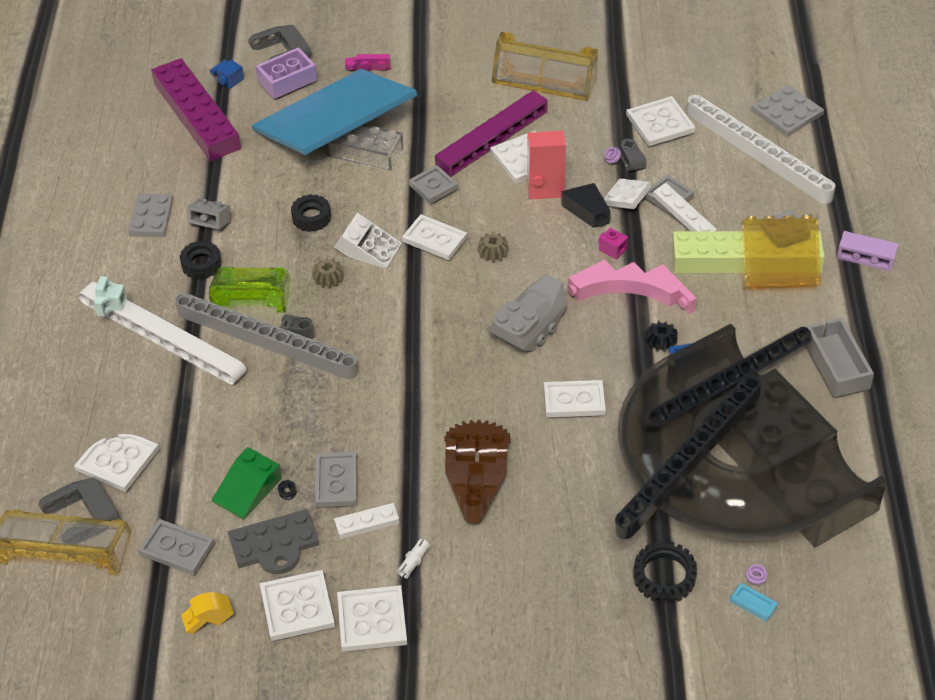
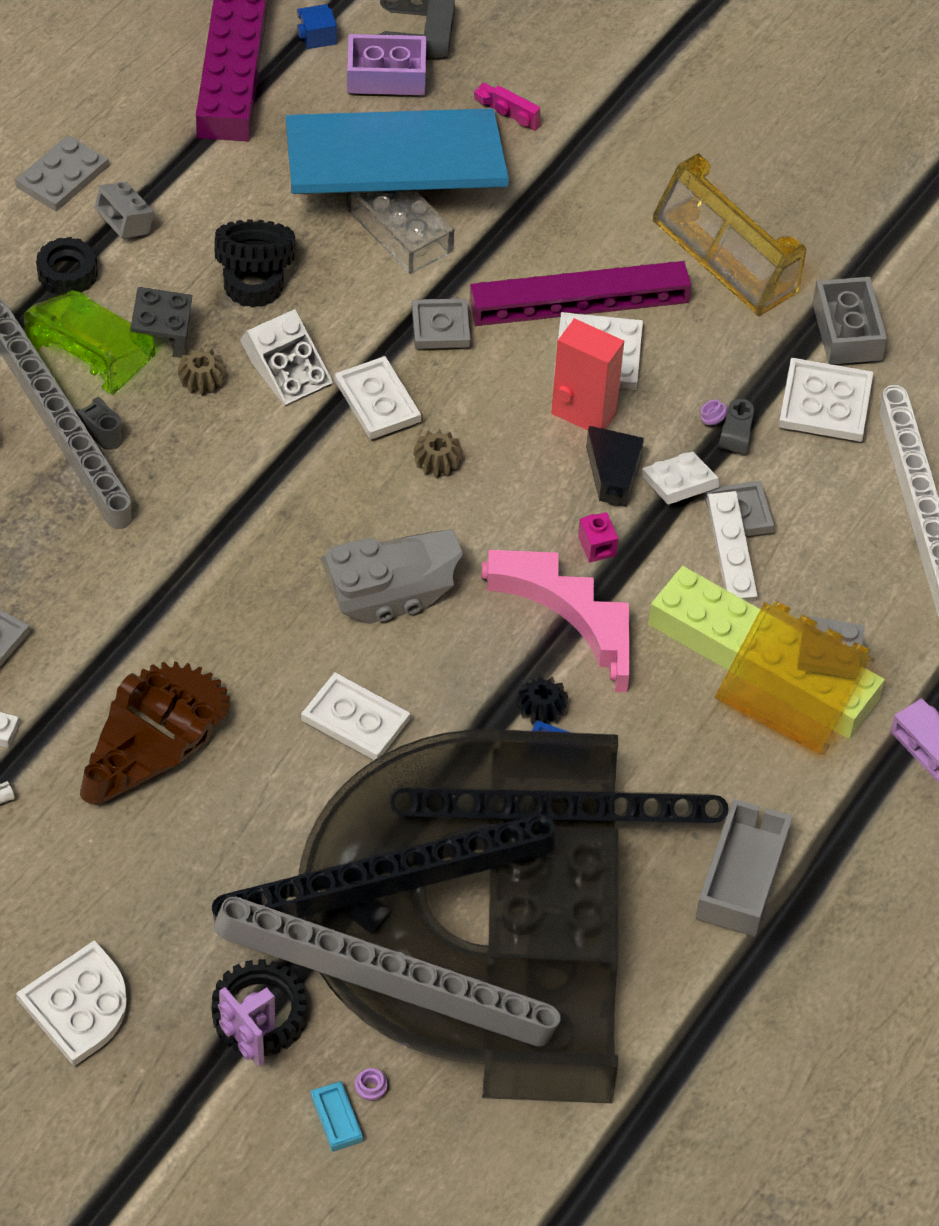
camera: 30 degrees right, 5 degrees up
(285, 253) = (163, 315): none -> dark grey bracket
(301, 194) = (254, 245): none -> black tyre
(567, 629) = (78, 1002): none -> white plate
(639, 77) = (849, 320): none -> light grey brick
(678, 578) = (248, 1021): none -> lavender bracket
(730, 504) = (386, 971): none -> light grey beam

